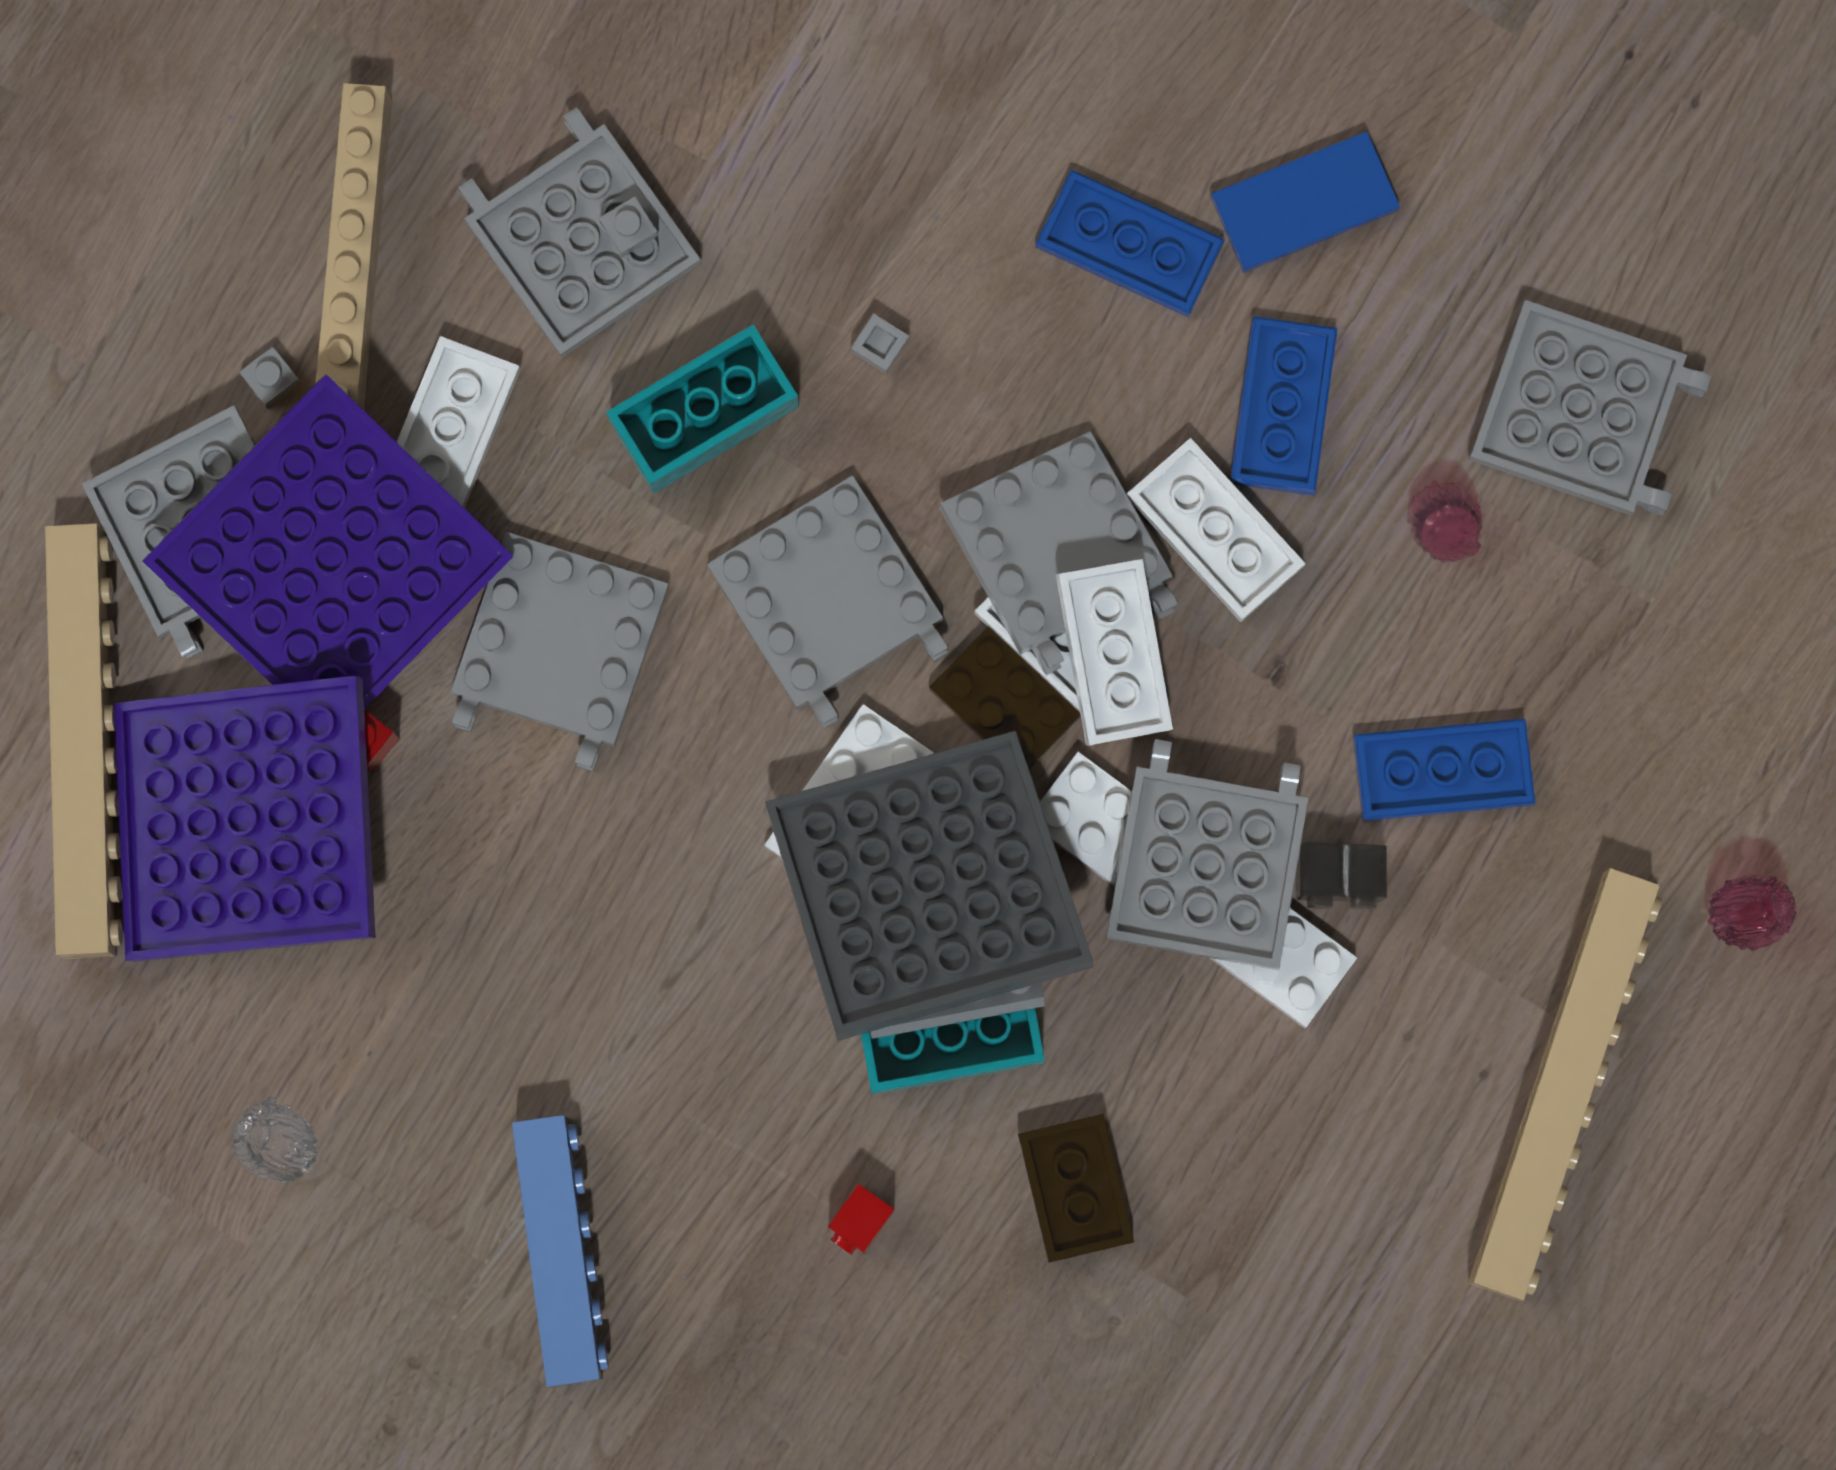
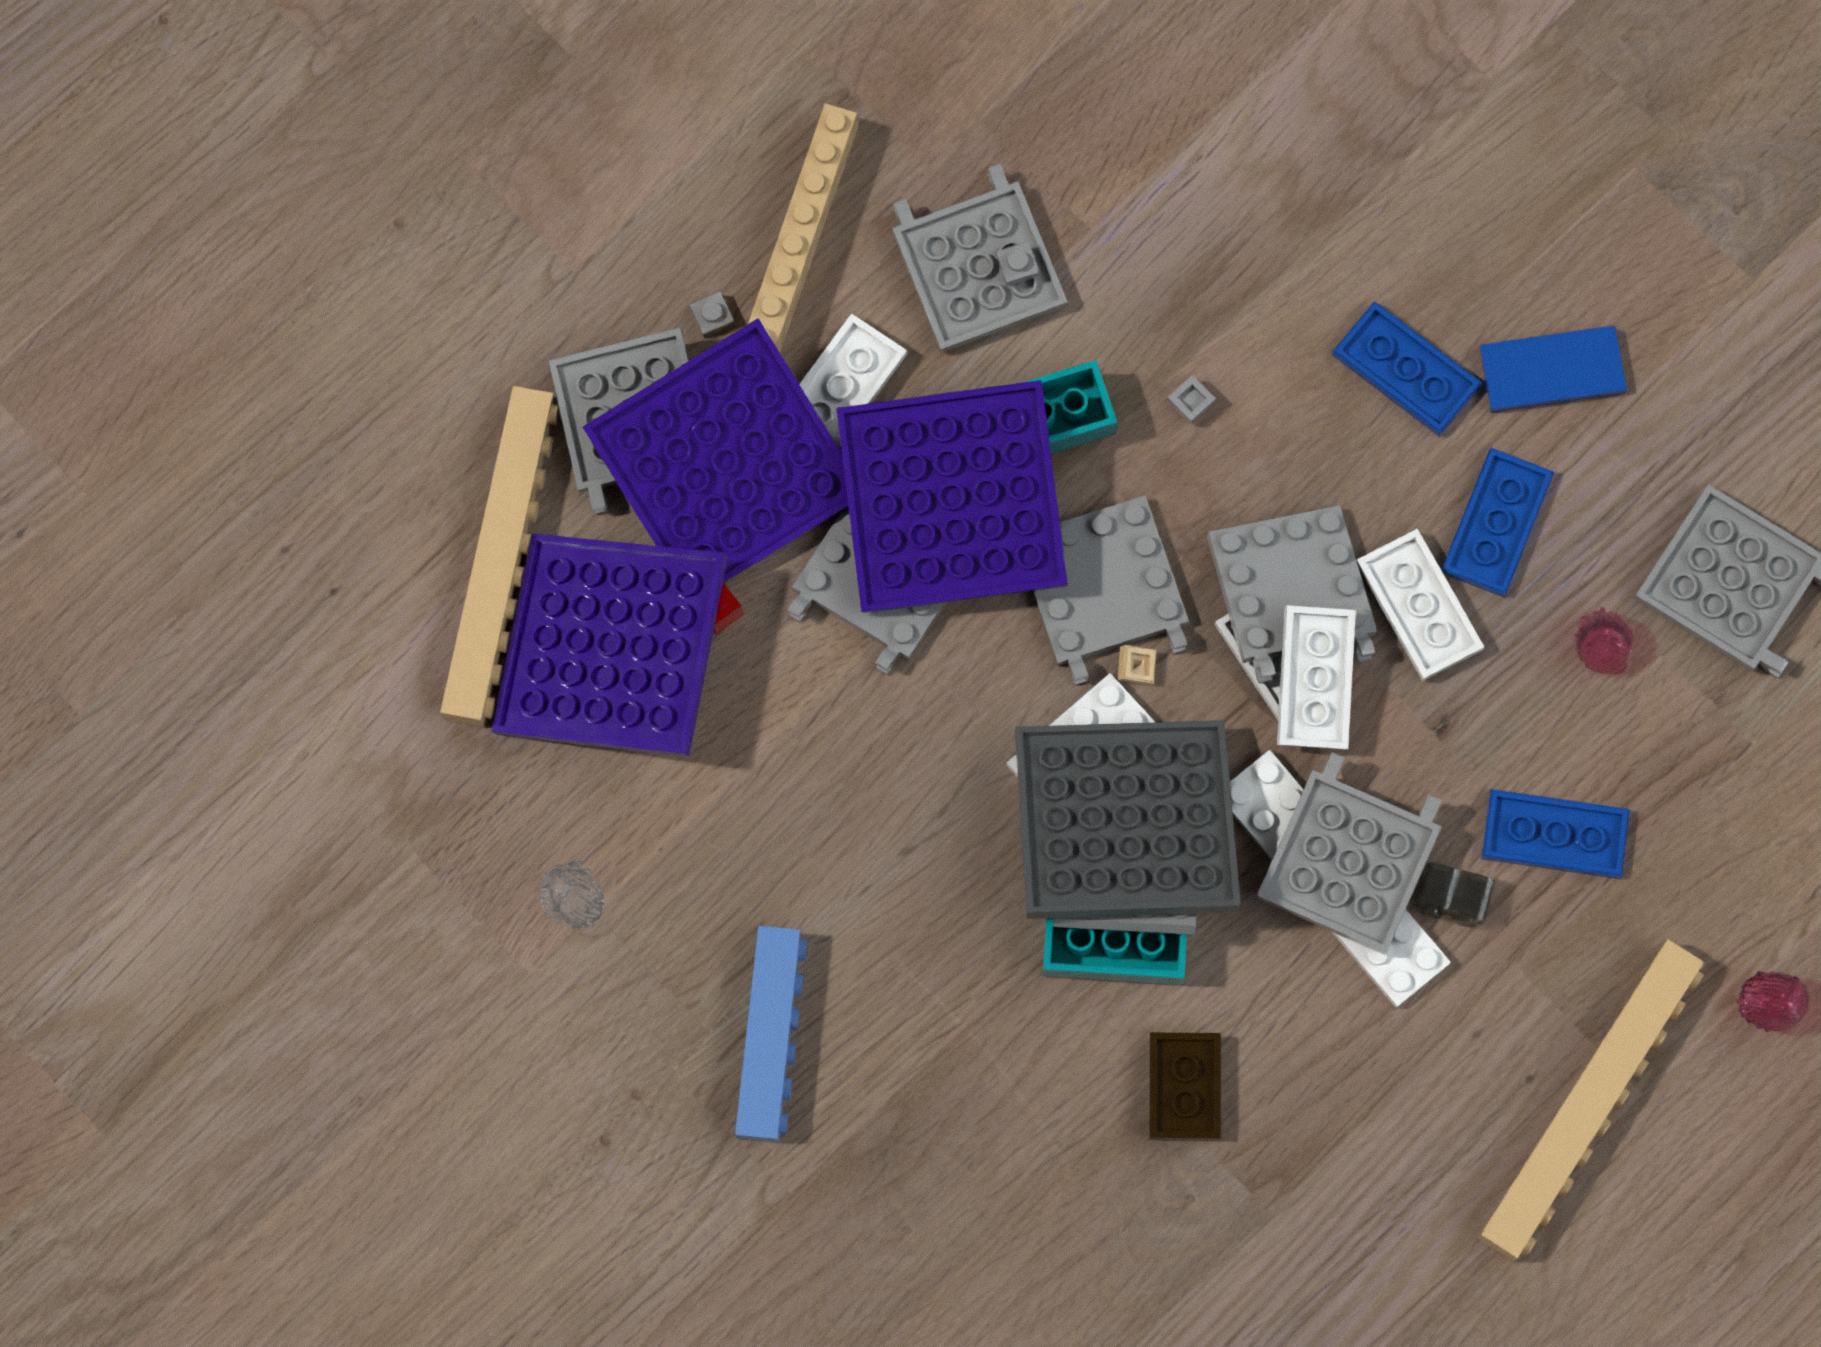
camera: 20 degrees right, 5 degrees down
(618, 536) = (952, 497): none -> dark purple plate
(859, 1220) = (1009, 1069): red brick -> none
(893, 686) = (1136, 665): none -> tan tile
(1002, 694) = (1219, 688): dark brown plate -> none

